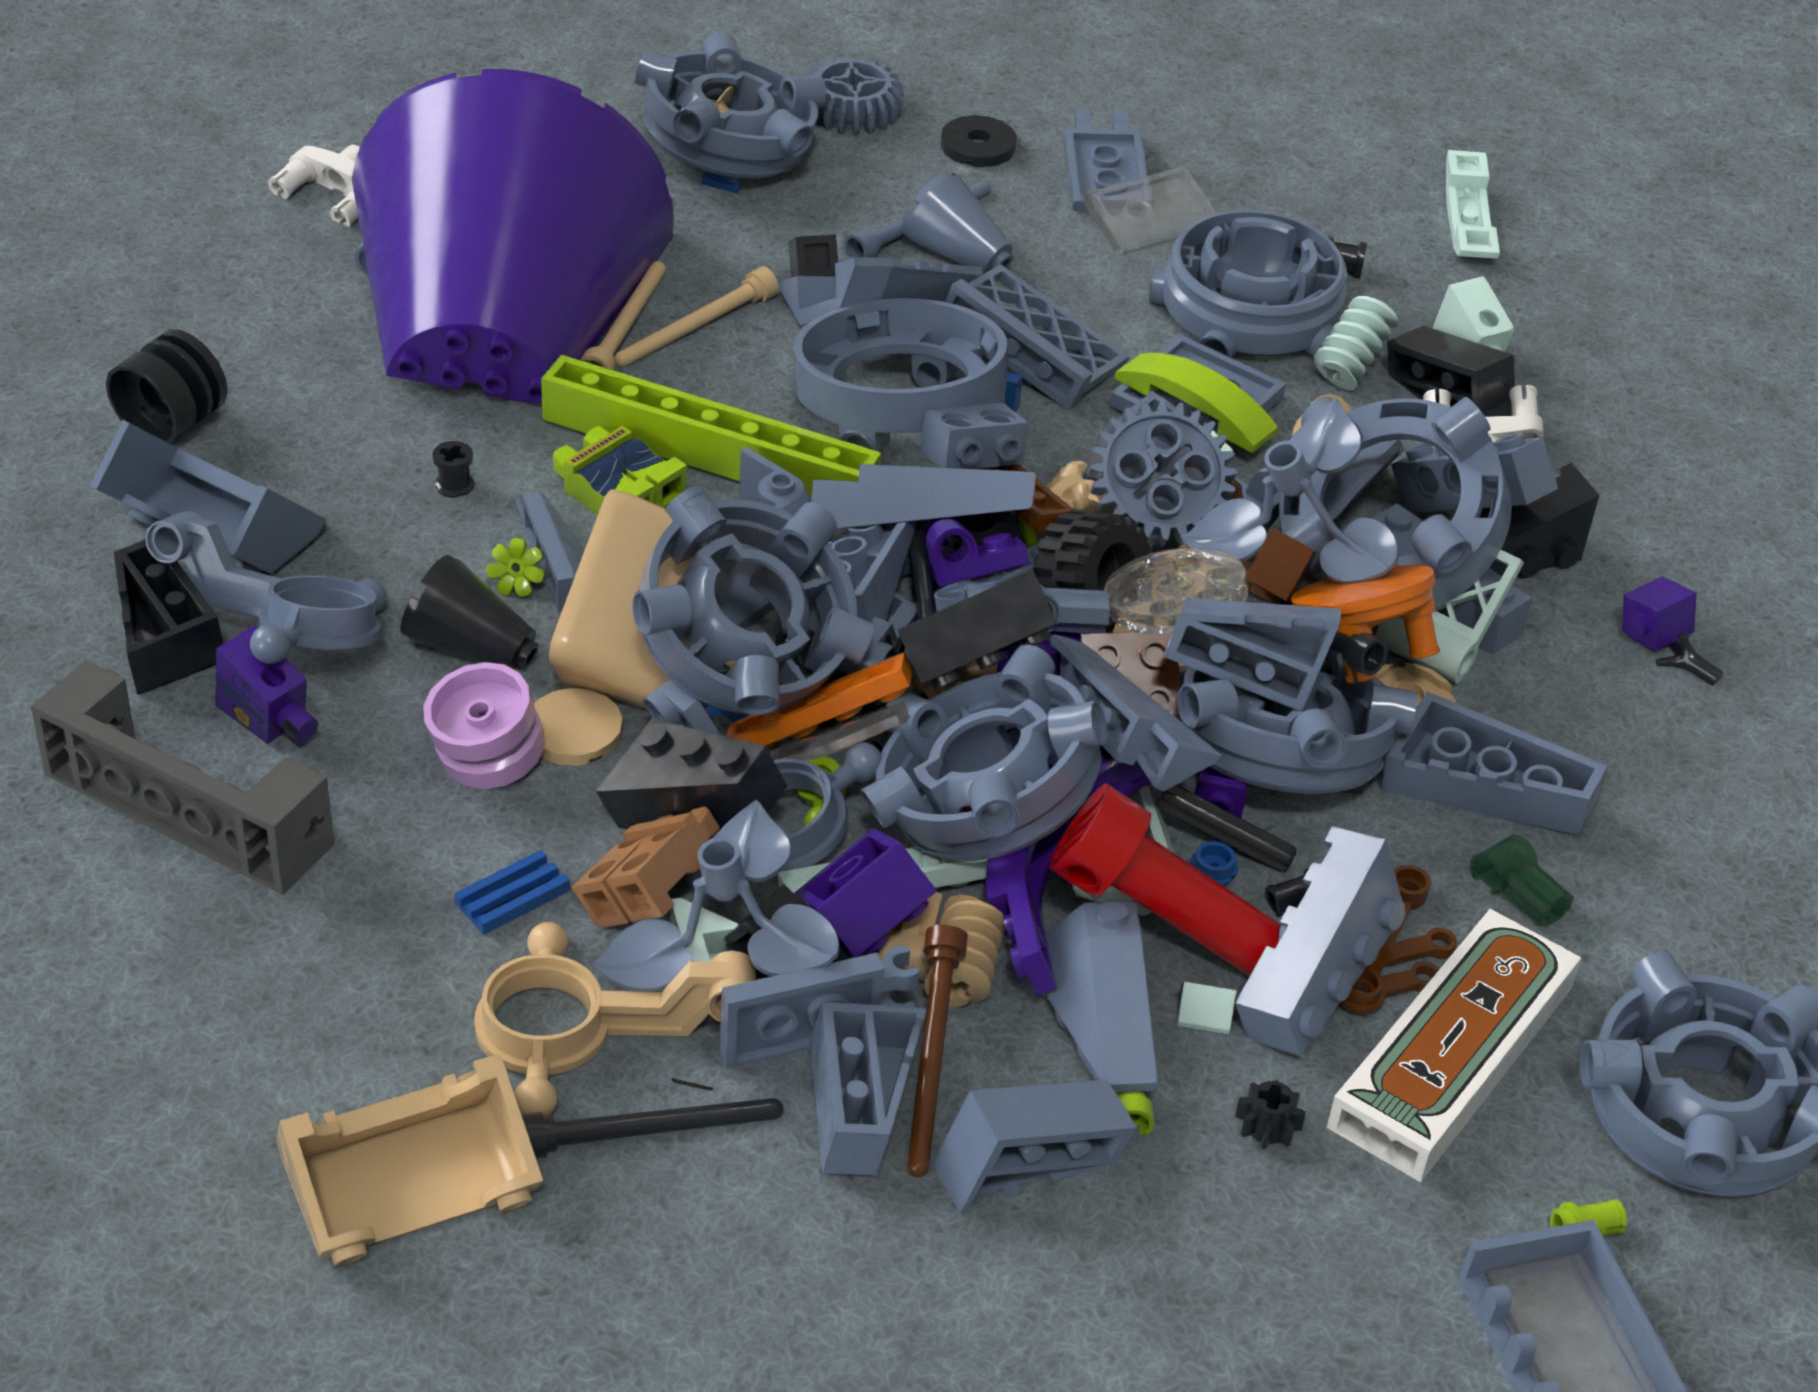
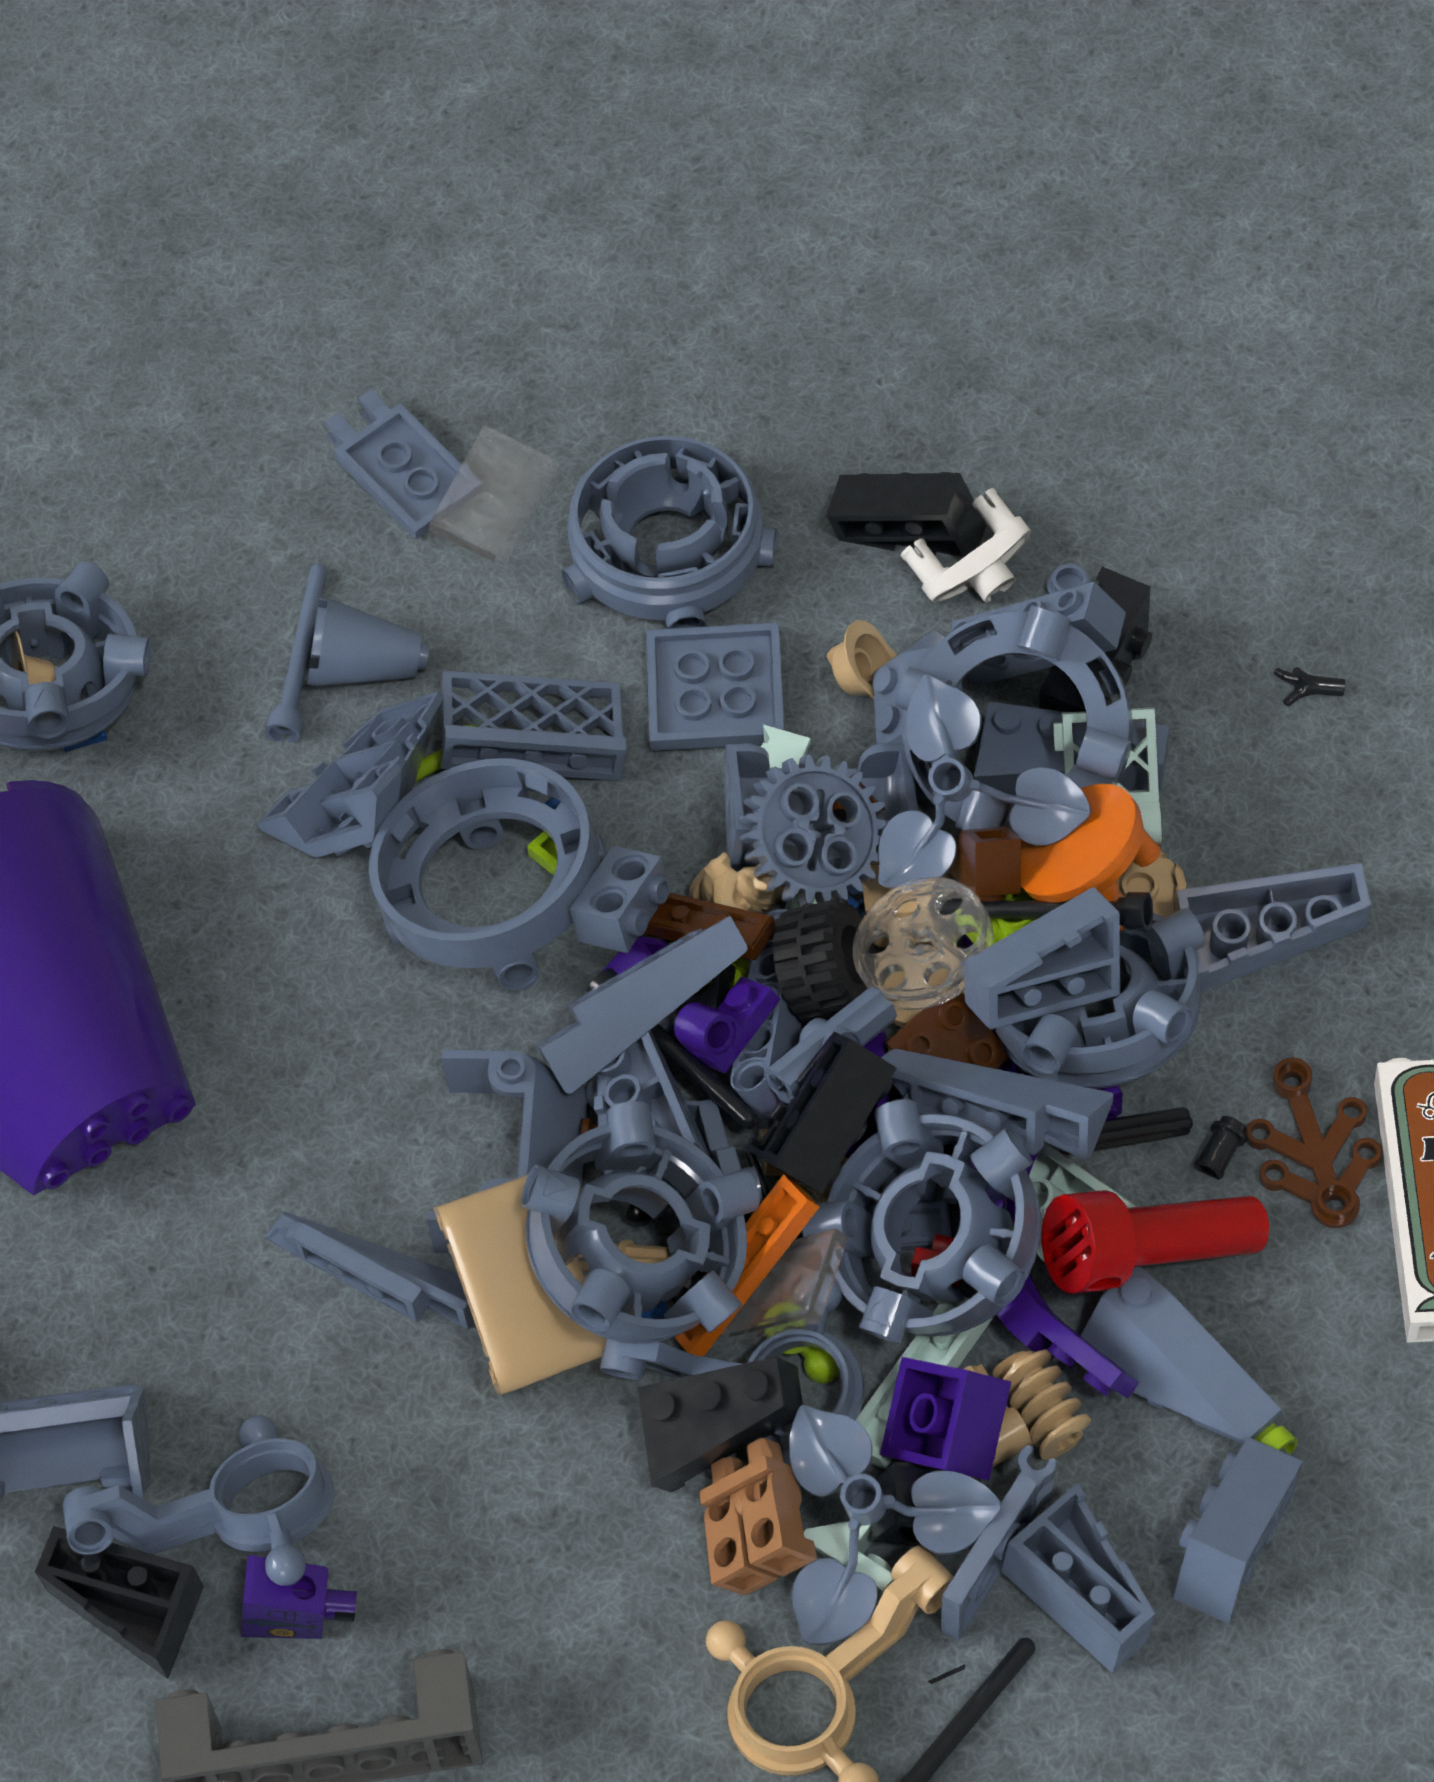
camera: 30 degrees left, 15 degrees up
(453, 468) = (189, 1236): black bush -> none
(467, 618) = (375, 1397): black cone -> none
(484, 725) = (480, 1467): lavender wheel -> none
(508, 567) = (352, 1311): lime plant -> none
(508, 885) = (664, 1579): blue tile -> none
(578, 726) = (547, 1427): tan tile -> none
(603, 354) = (188, 1030): tan piece -> none
(618, 464) = (336, 1149): lime hips -> none
(690, 426) = (373, 1050): lime brick -> none
(757, 286) = (240, 840): tan piece -> none
(813, 255) = (268, 778): black brick -> none
(859, 95) = (108, 533): sand blue gear -> none
(945, 948) = (1054, 1427): reddish brown piece -> none
(998, 138) = (255, 495): black tile -> none
(1205, 389) = (728, 690): lime slope -> none
(1206, 1007) = (1242, 1305): light aqua slope -> none
(1219, 855) = (1139, 1159): blue plate -> none
(1270, 1113) = (1365, 1378): black gear -> none
(1323, 943) = (1298, 1196): sand blue wedge -> none
(1352, 255) = (702, 427): black bush -> none
(1355, 341) = (800, 538): light aqua piece -> none
(1468, 205) = (749, 292): light aqua slope -> none
(1474, 314) = (881, 443): light aqua torso -> none
(1514, 871) = (1352, 1006): clear green piece -> none
(1659, 613) = (1259, 658): dark purple brick -> none

